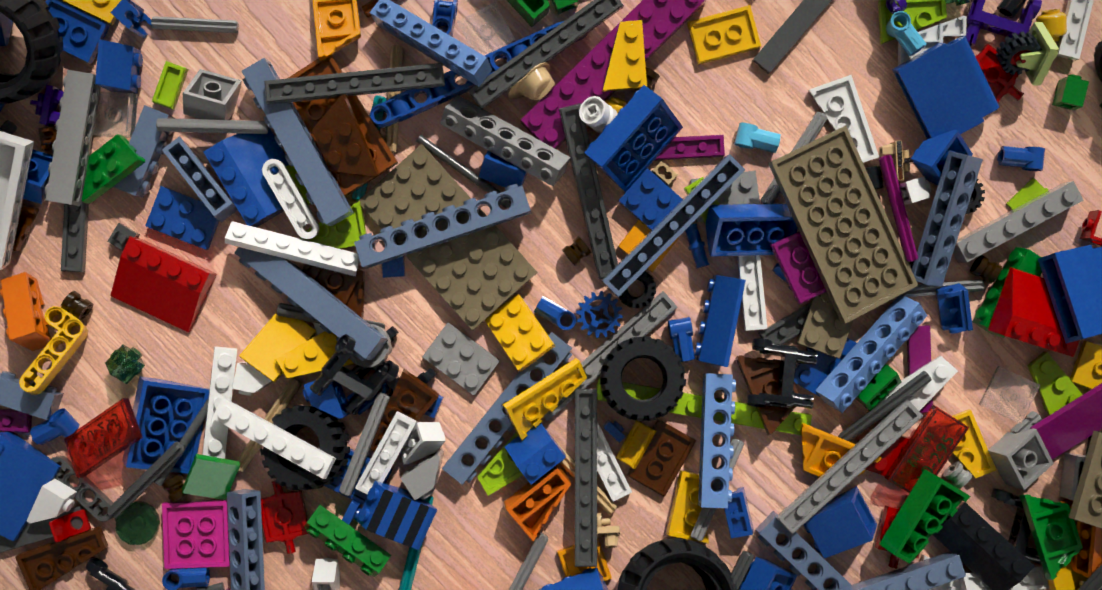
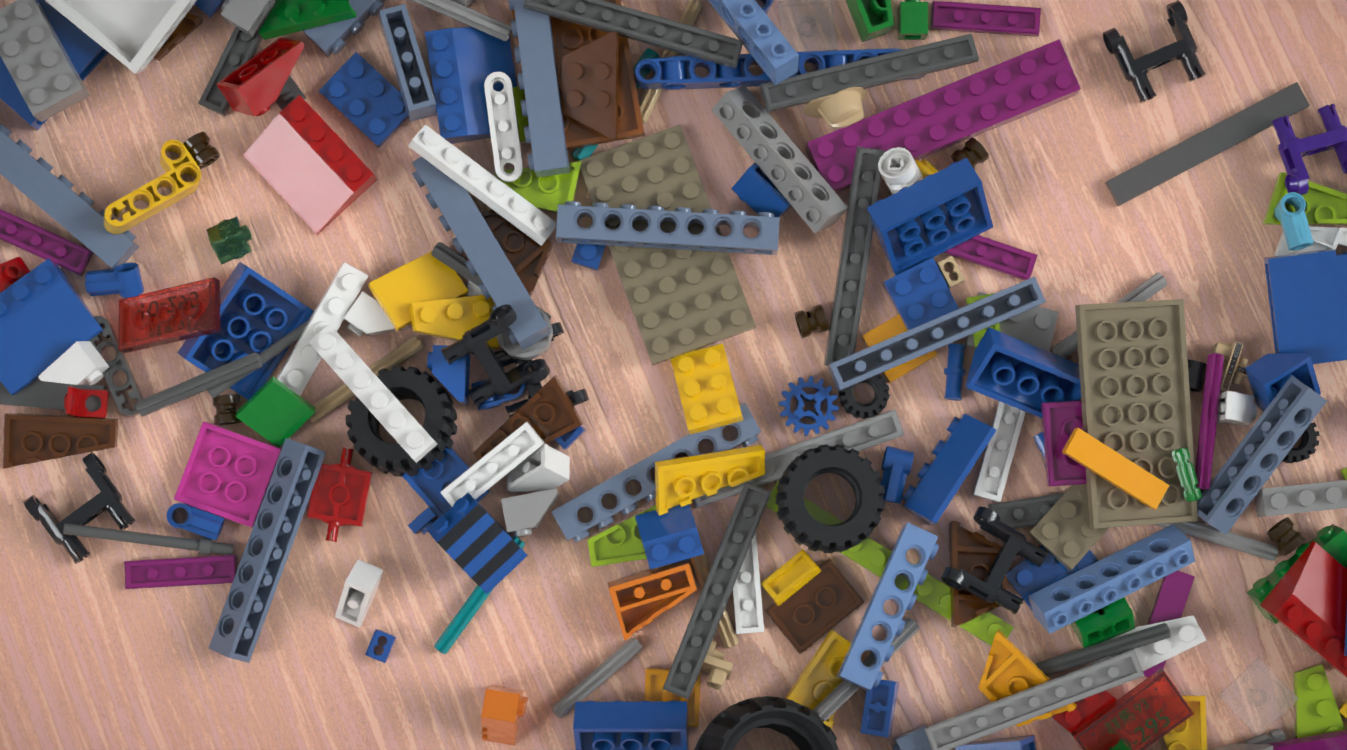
camera: 15 degrees right, 5 degrees down
(24, 311) = (138, 133): orange wedge -> none
(97, 235) = (261, 78): none -> red slope
(138, 523) = (162, 434): clear green tile -> none
(347, 541) = (404, 552): green brick -> none
(364, 444) = (471, 445): light grey axle -> none
(461, 358) = (624, 393): light grey plate -> none
(506, 203) = (713, 171): dark grey bar -> none
(553, 312) = (755, 383): blue piece -> none
(615, 430) = (772, 549): blue plate -> none
(627, 60) = (959, 122): yellow wing -> none
(724, 34) = (1083, 140): yellow tile -> none
(751, 137) = (1068, 270): medium azure piece -> none
(843, 108) = (1190, 277): white wing -> none
(844, 273) = (1115, 468): none -> light orange tile
(898, 255) = (1186, 474): none -> green axle
(954, 308) = (1230, 566): blue hinge -> none

